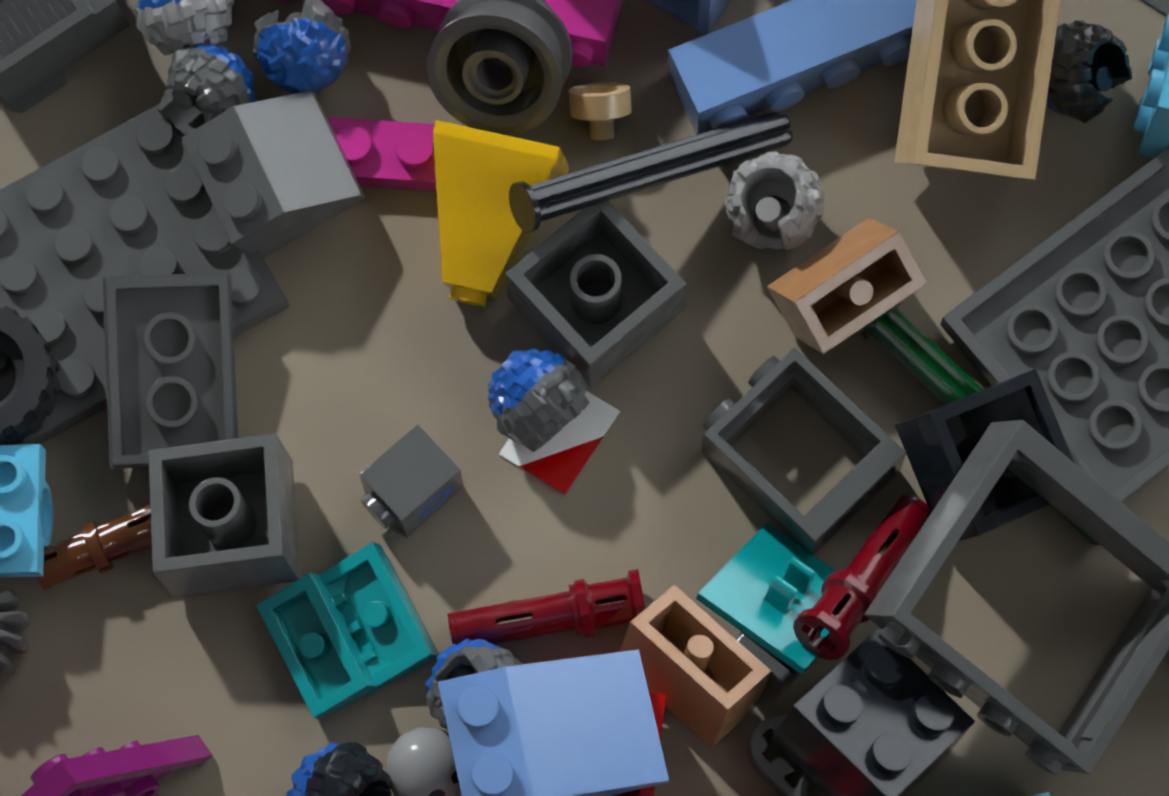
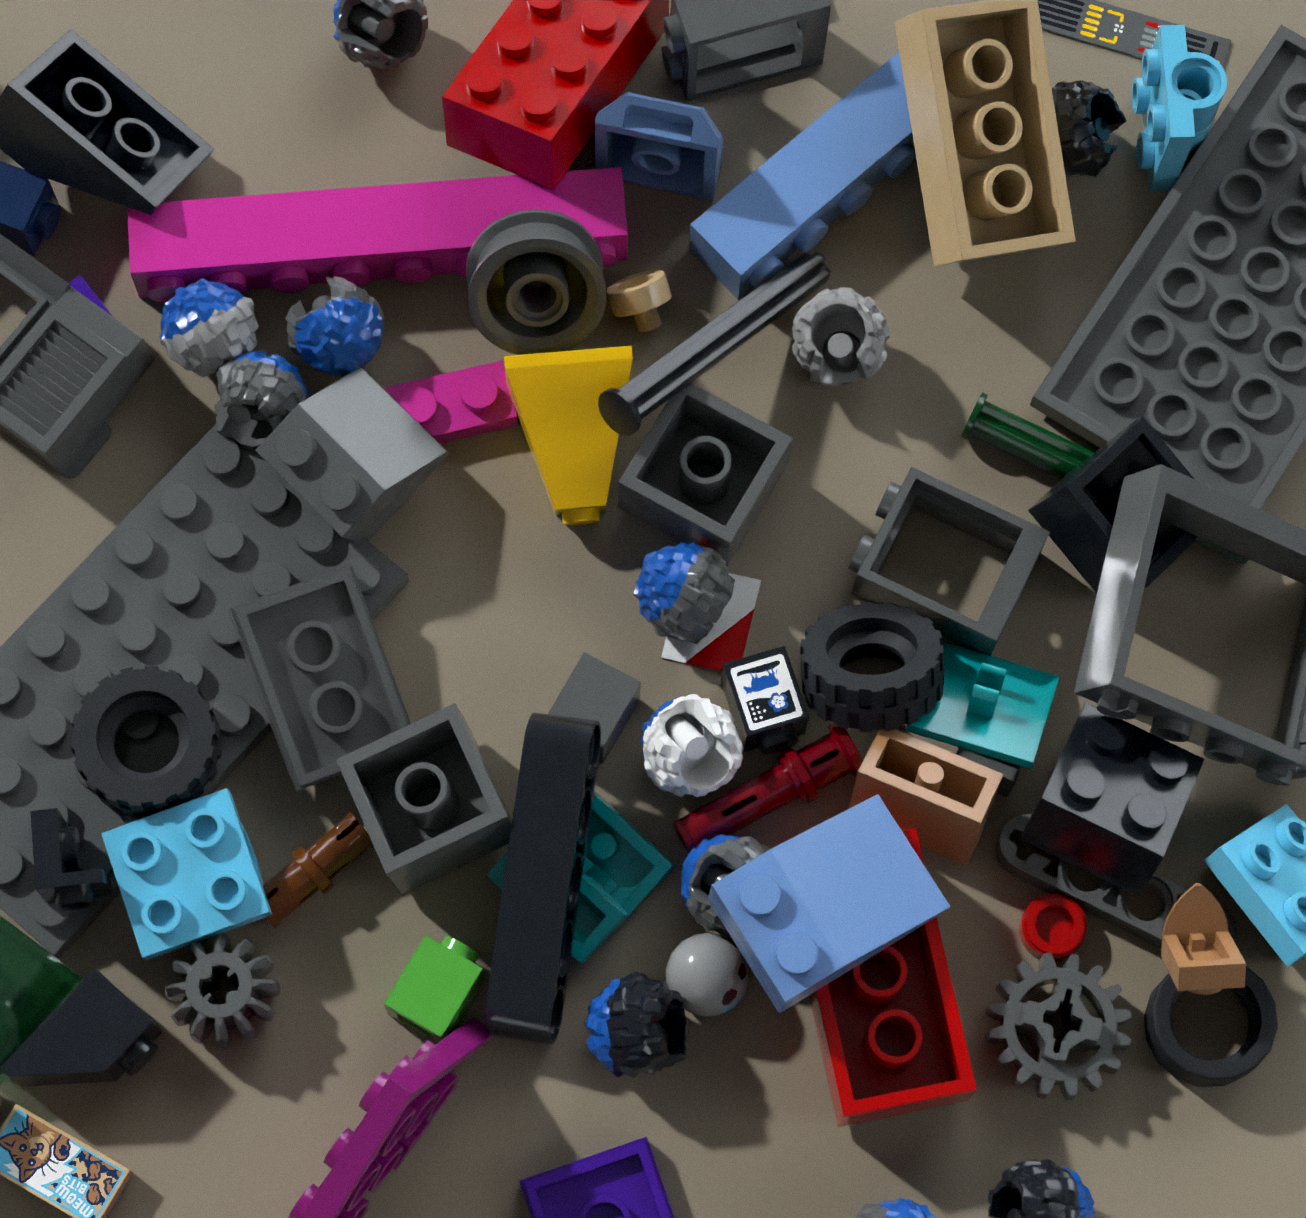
camera: 25 degrees left, 0 degrees up
(169, 694) = (436, 987): none -> bright green brick
(301, 624) = (542, 878): none -> black beam
(487, 547) = (691, 746): none -> white piece
(576, 527) = (765, 701): none -> black brick
(680, 560) = (880, 699): none -> black tyre
(847, 284) = (936, 393): medium nougat brick -> none
(852, 590) = (1048, 678): dark red pin -> none

